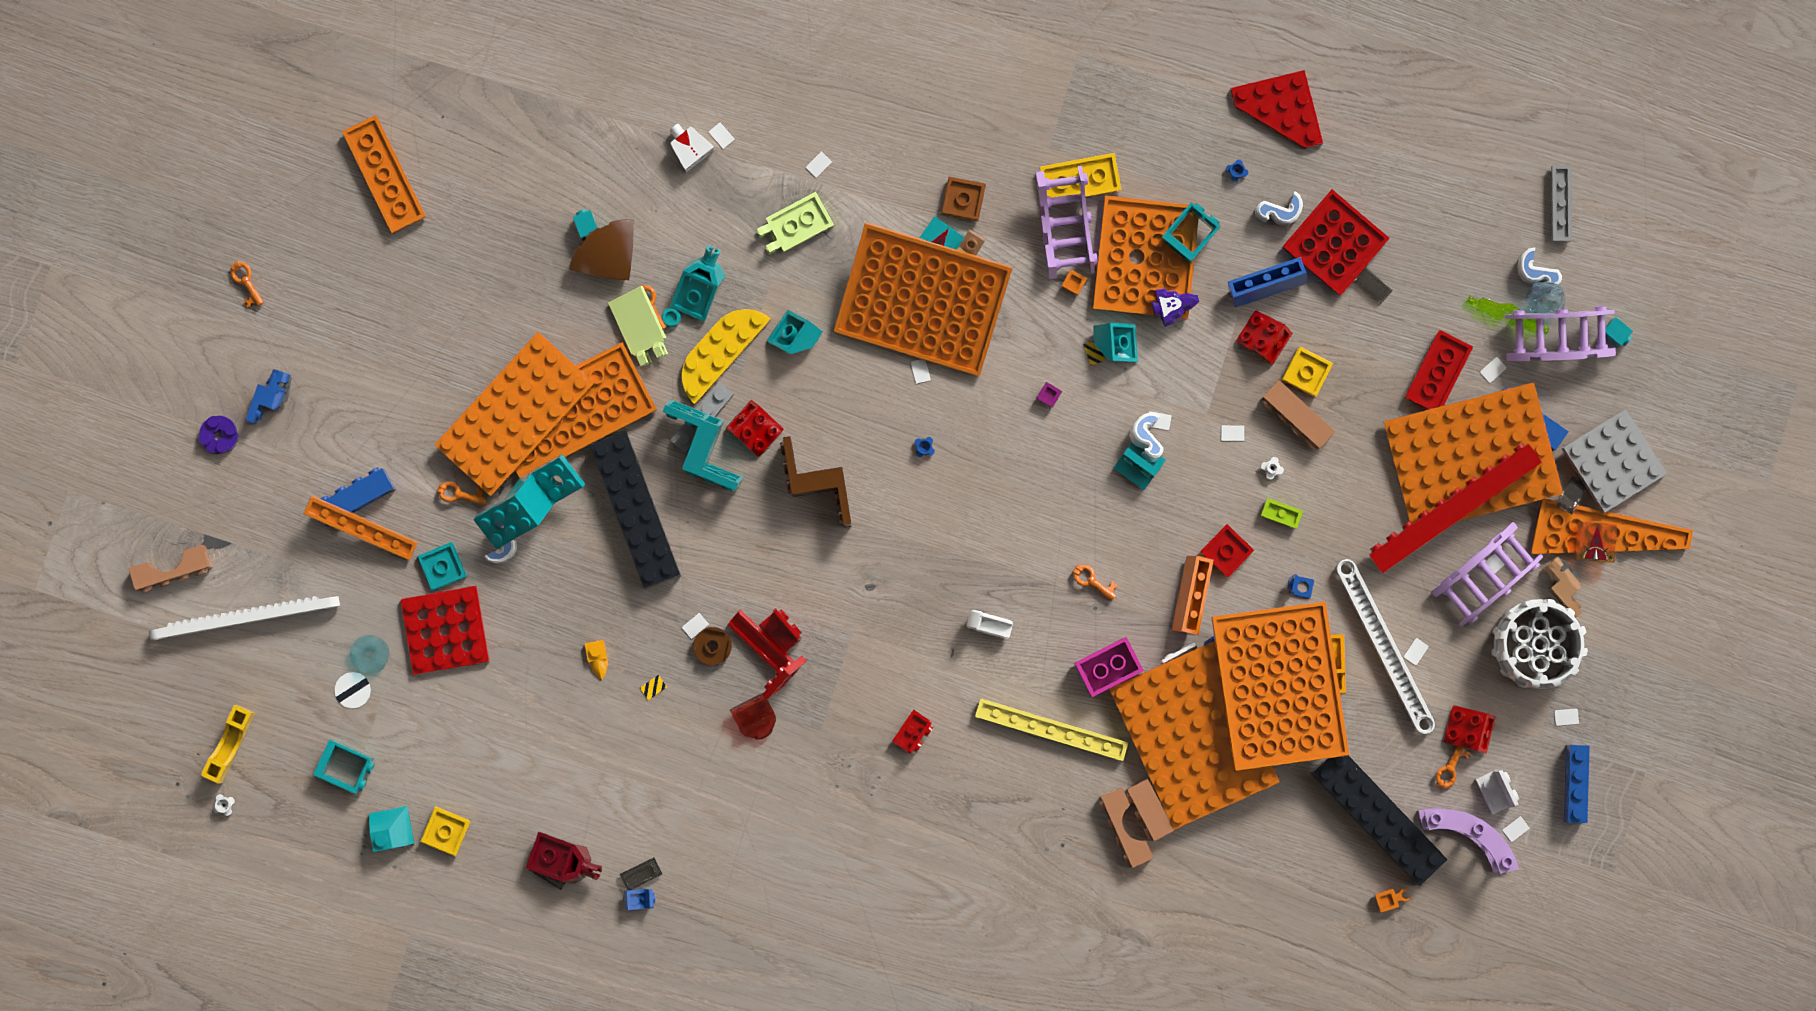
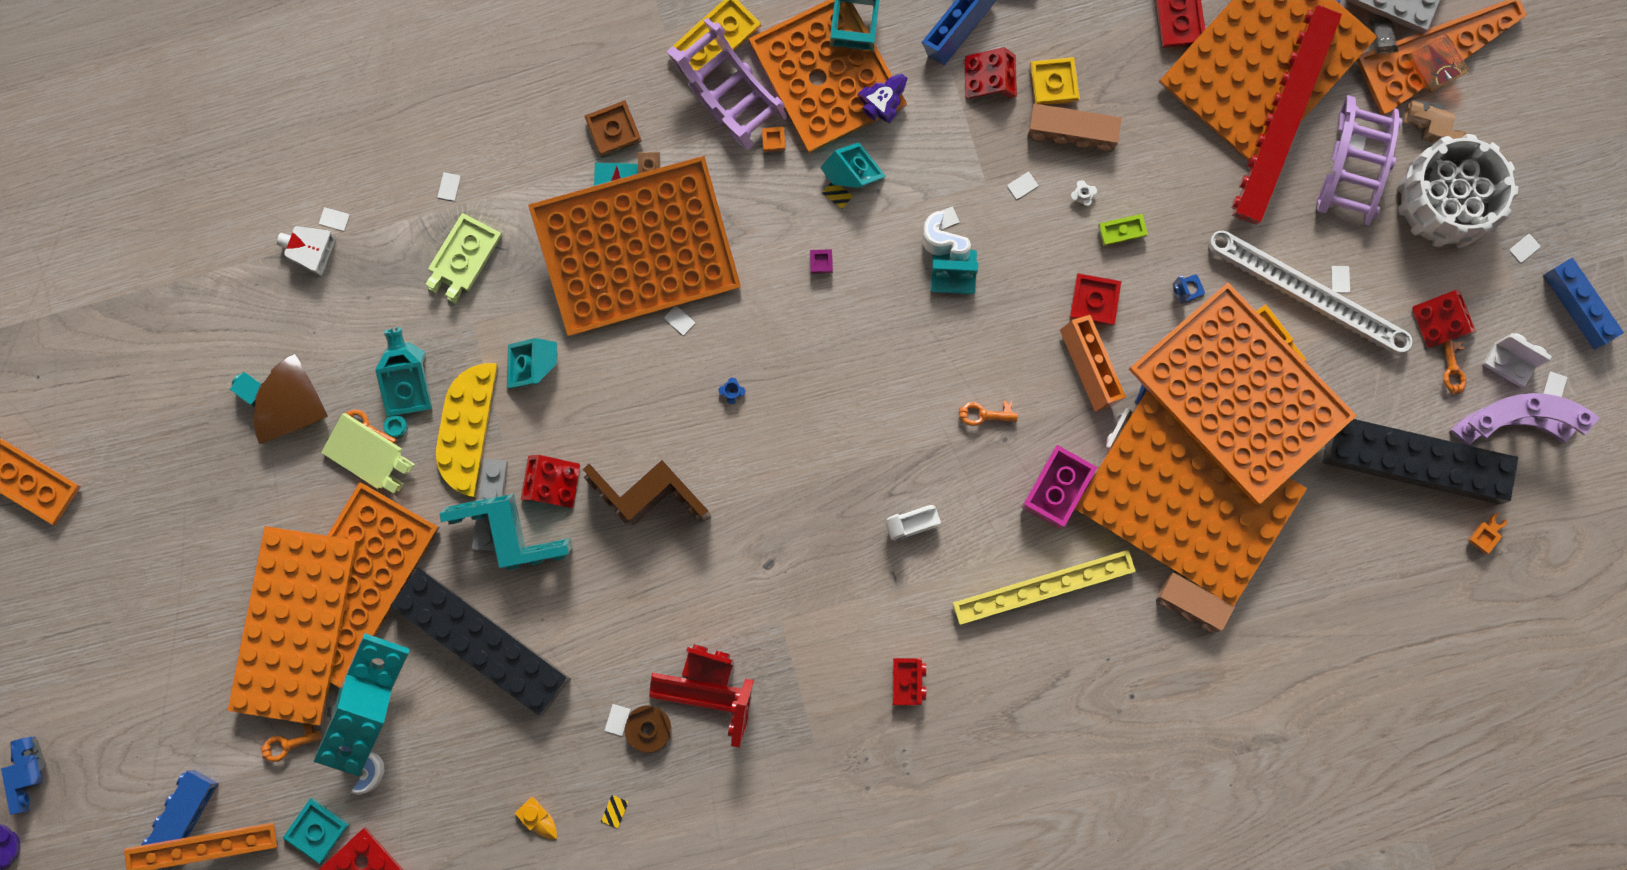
camera: 35 degrees left, 5 degrees down
(754, 717) = (738, 773): clear red slope -> none
(1135, 850) = (1158, 620): nougat arch -> none

